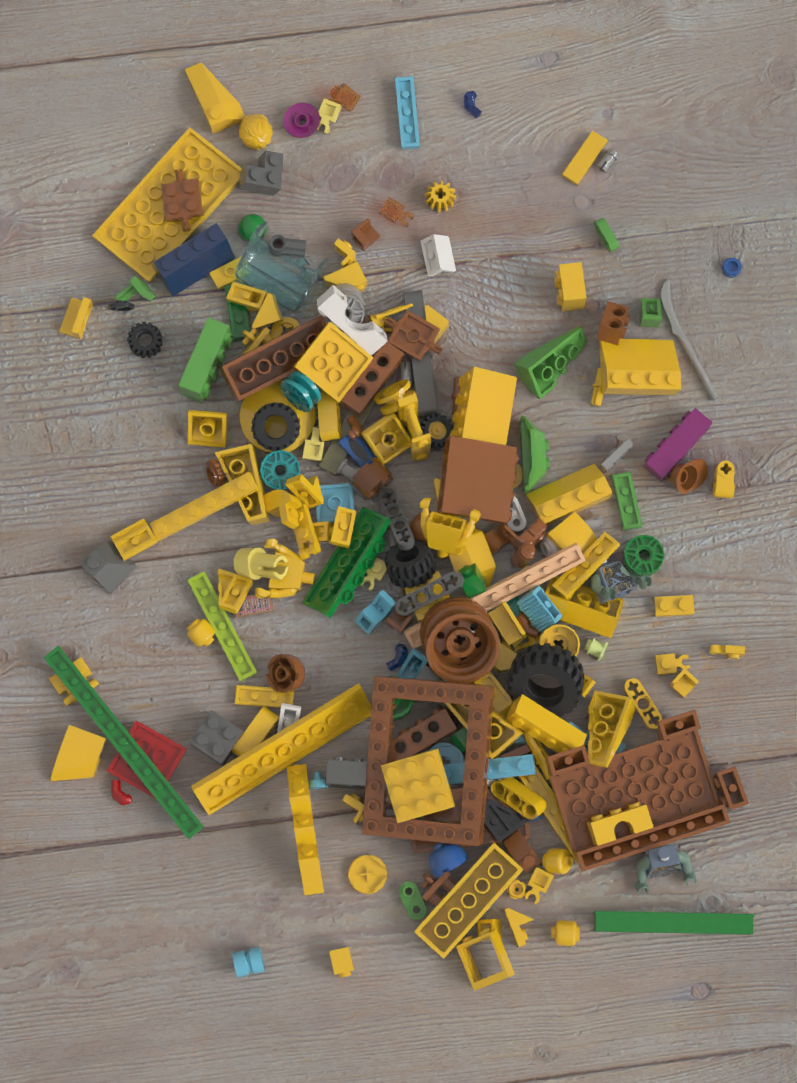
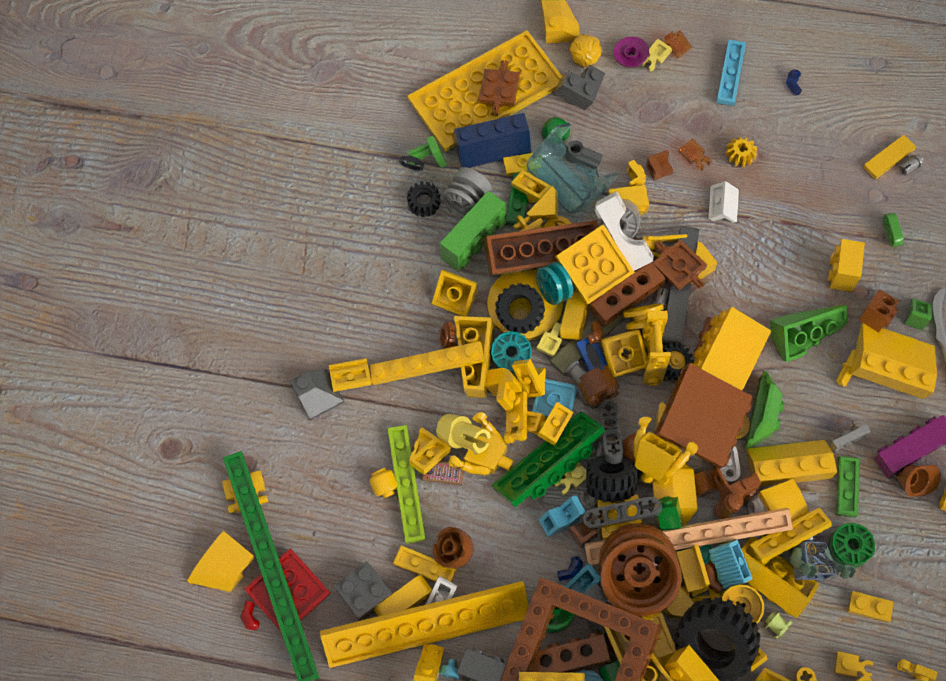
camera: 20 degrees right, 10 degrees down
(76, 317) = (368, 162): yellow panel -> none
(185, 320) = (466, 190): none -> light grey wheel

